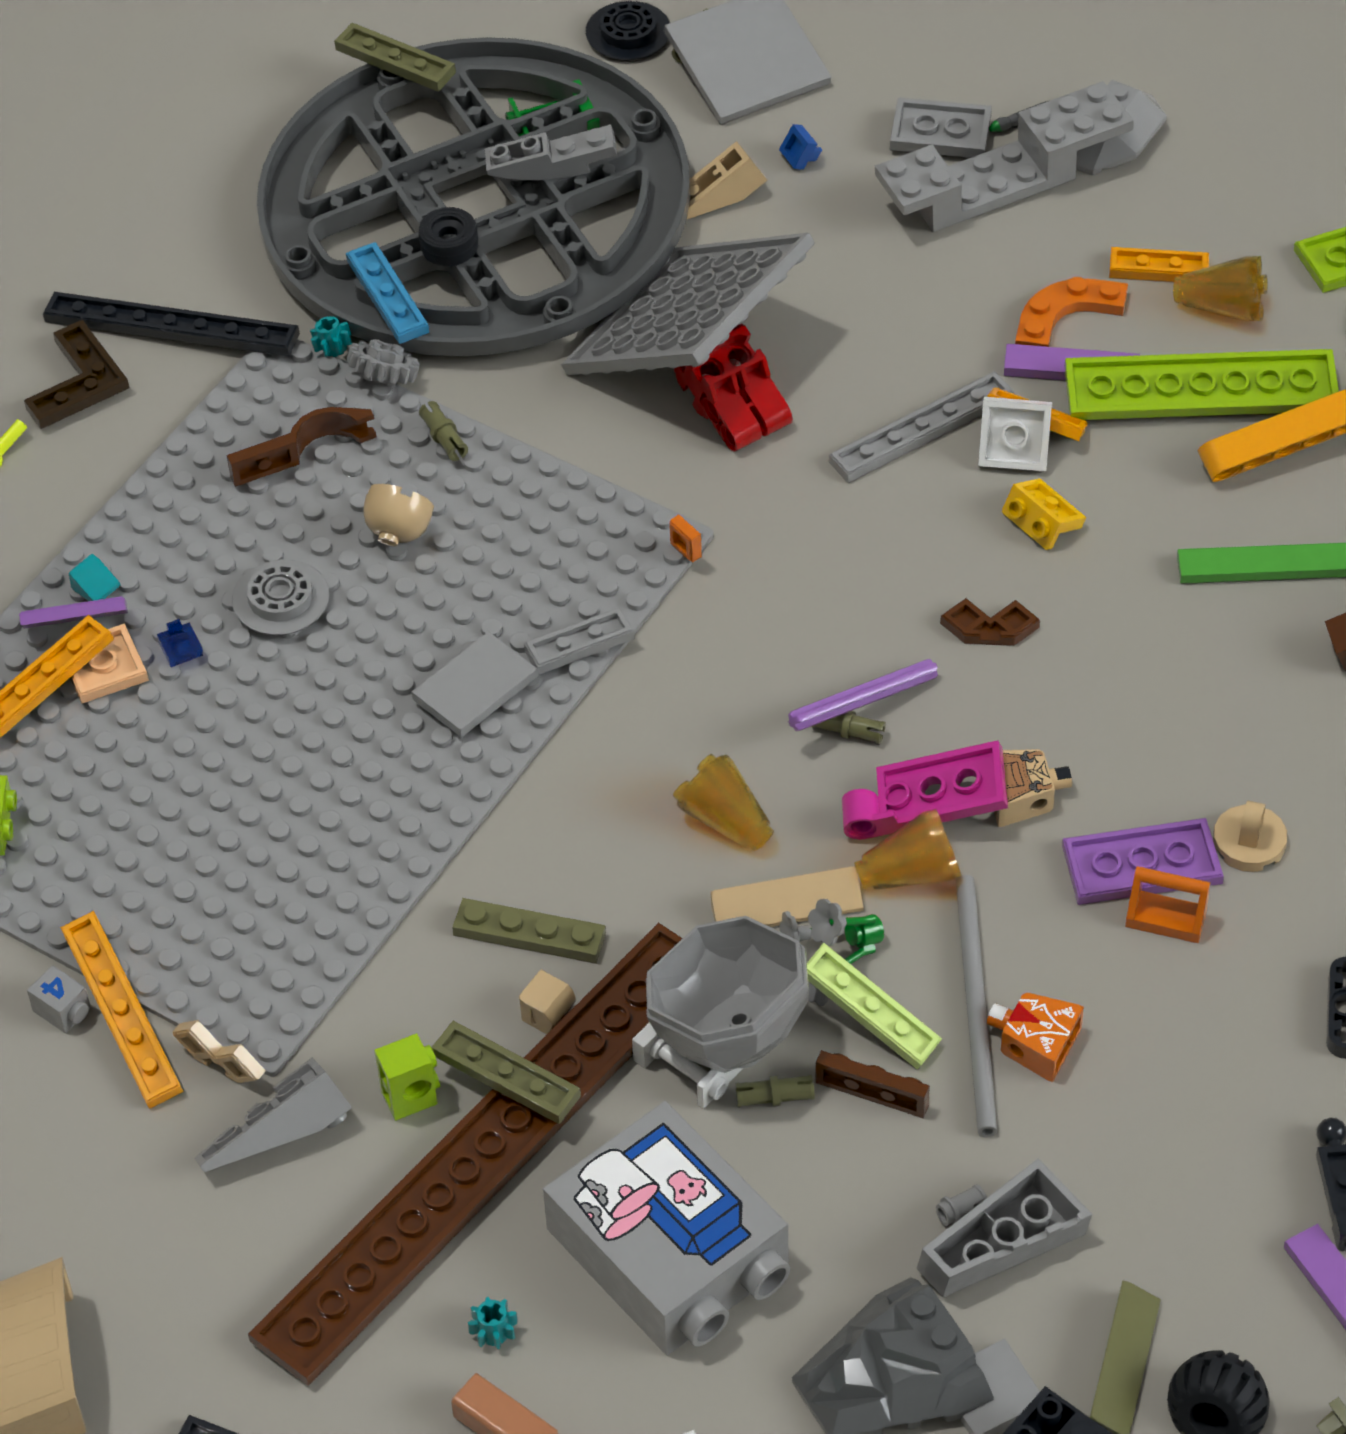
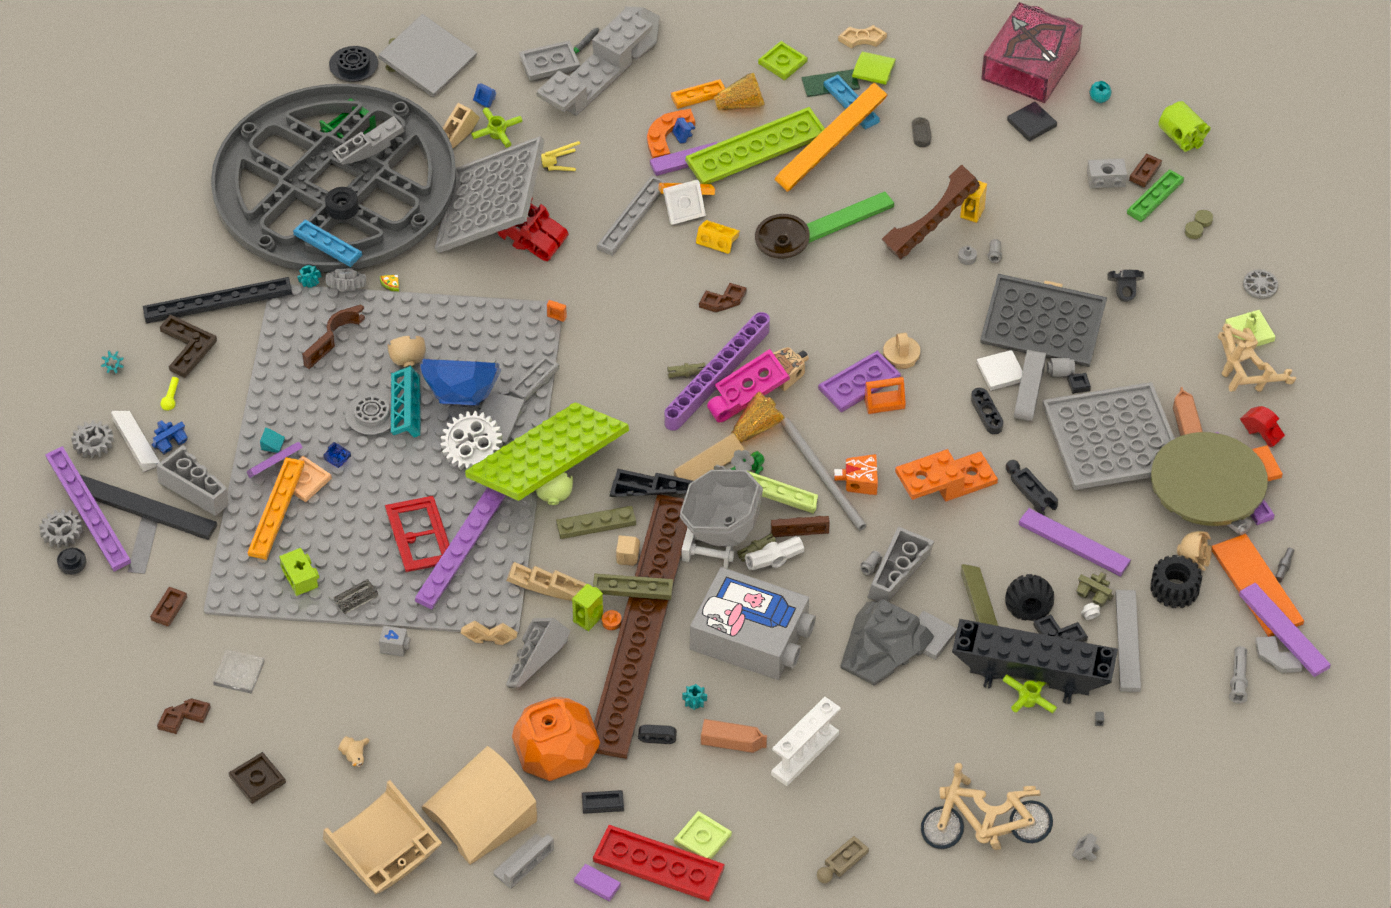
camera: 30 degrees left, 0 degrees up
(50, 900) = (357, 598): none -> clear smoke tile
(121, 1010) = (426, 633): light orange tile -> none
(203, 831) = (403, 539): none -> red door
(212, 1305) = (558, 747): none -> orange rock
(297, 864) = (459, 548): none -> medium lavender plate
(347, 600) = (409, 399): none -> teal fence
(370, 1000) = (544, 582): none -> tan slope
(385, 1364) = (657, 734): none -> black beam
(395, 56) = (249, 119): olive plate -> none
(402, 705) = (465, 427): none -> white gear
(437, 593) = (460, 380): none -> blue rock
(442, 1116) = (611, 620): none -> orange tile
(443, 431) = (399, 302): olive pin -> none
(458, 394) = (390, 282): none -> tile
(488, 839) = (556, 489): none -> yellowish green cylinder
(508, 771) = (546, 451): none -> lime plate
(634, 891) = (637, 484): none -> black wedge
(724, 802) = (655, 428): clear yellow cone -> none
(785, 203) = (496, 127): none -> lime bar
(796, 1116) = (774, 554): none -> white piece
(840, 285) = (549, 158): none -> light yellow plant
(862, 695) = (688, 353): medium lavender axle -> none
(911, 737) = (717, 369): none -> medium lavender beam
(1093, 314) = (682, 130): none -> blue tile
(1150, 552) = (782, 236): none -> dark brown dish
(1193, 1098) = (946, 475): none -> orange bracket

